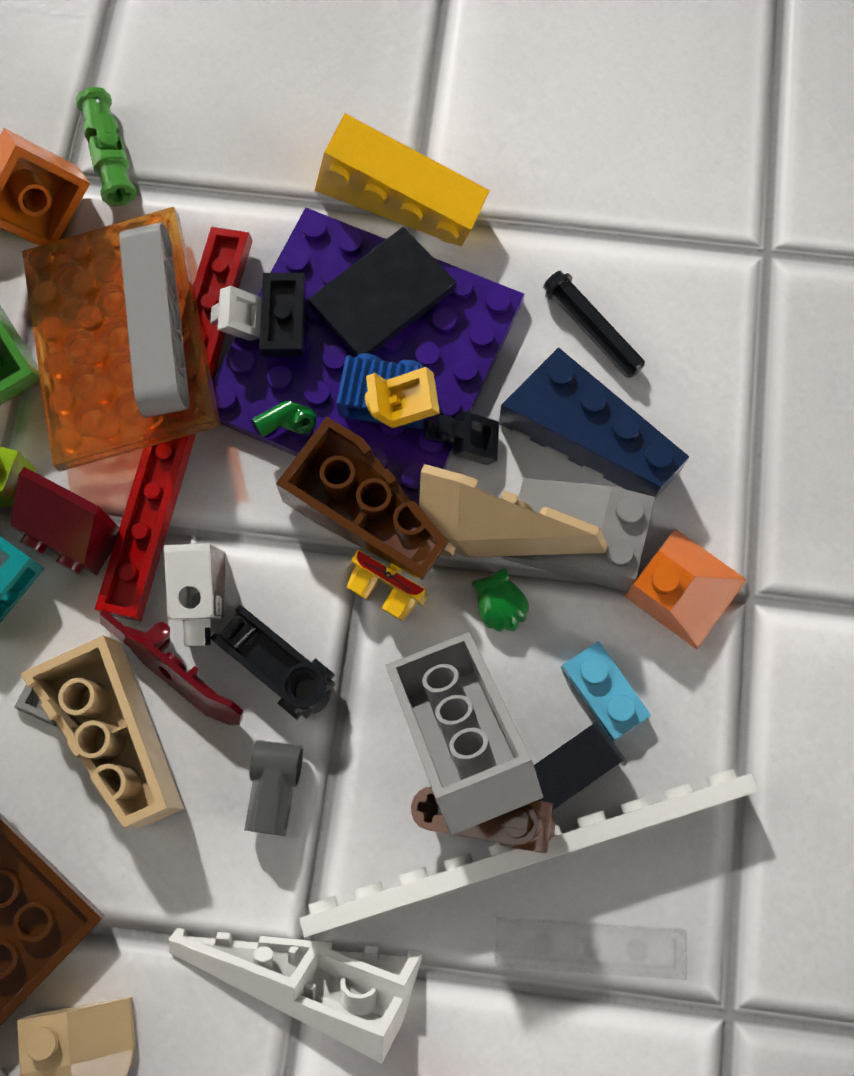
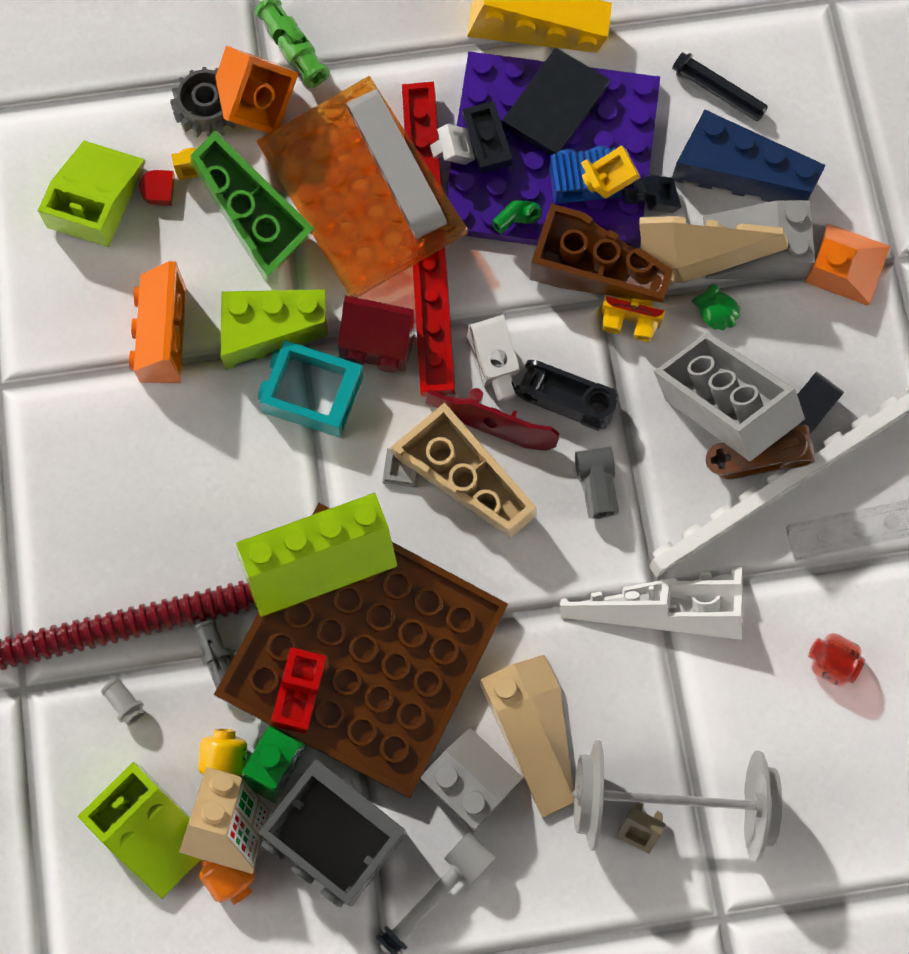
camera: 20 degrees left, 0 degrees up
(605, 690) = (813, 350): medium azure plate -> none

